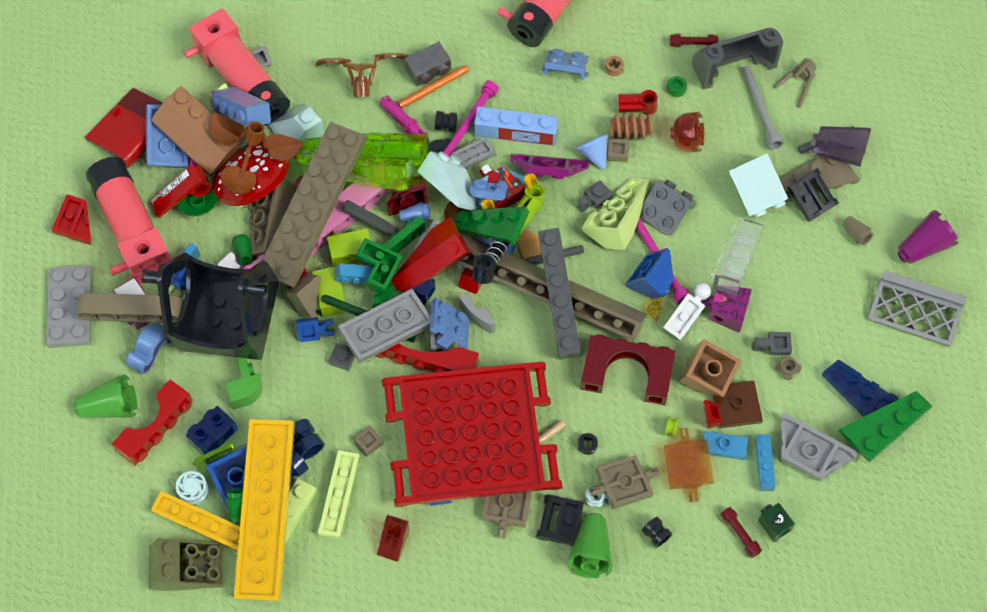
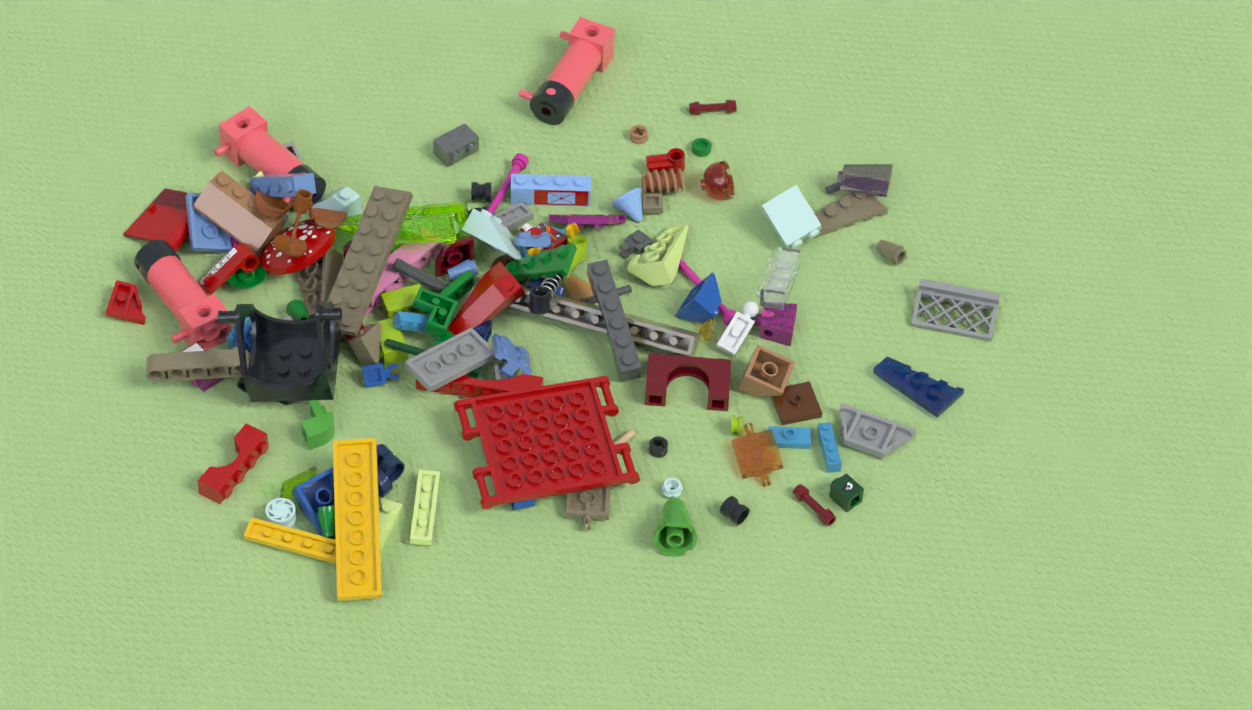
camera: 10 degrees left, 15 degrees down
(64, 288) = (130, 384): light grey plate -> none
(108, 400) = (185, 447): bright green cone -> none
(147, 347) = (218, 401): medium blue animal -> none
(185, 565) = (283, 577): olive slope -> none
(211, 431) = (292, 462): clear blue brick -> none
(341, 357) = (409, 396): dark grey plate -> none
(360, 84) = (393, 165): dark orange plant -> none
(368, 441) = (446, 463): dark tan tile -> none
(393, 537) = (483, 535): clear red slope -> none
(409, 124) = (434, 190): dark pink pin -> none
(433, 86) = (463, 165): orange bar -> none
(467, 282) = (526, 322): red slope -> none
(480, 317) = (540, 350): light grey slope -> none
(567, 521) = (648, 509): black plate -> none
(568, 62) = (599, 131): medium blue piece -> none
(624, 481) = (698, 472): dark tan plate -> none
(666, 206) = (706, 245): bracket -> none
(712, 414) = (772, 410): red slope -> none
(762, 46) = (774, 102): dark grey windscreen -> none
(773, 139) = (799, 180): light grey piece -> none
(777, 342) = (826, 348): dark grey plate -> none
(792, 363) = (840, 368): dark tan plate -> none
(803, 71) = (822, 123): dark tan plant -> none
(807, 197) = (841, 228): black plate -> none
(882, 427) = (937, 405): green wing -> none
(927, 239) = (959, 250): magenta cone -> none

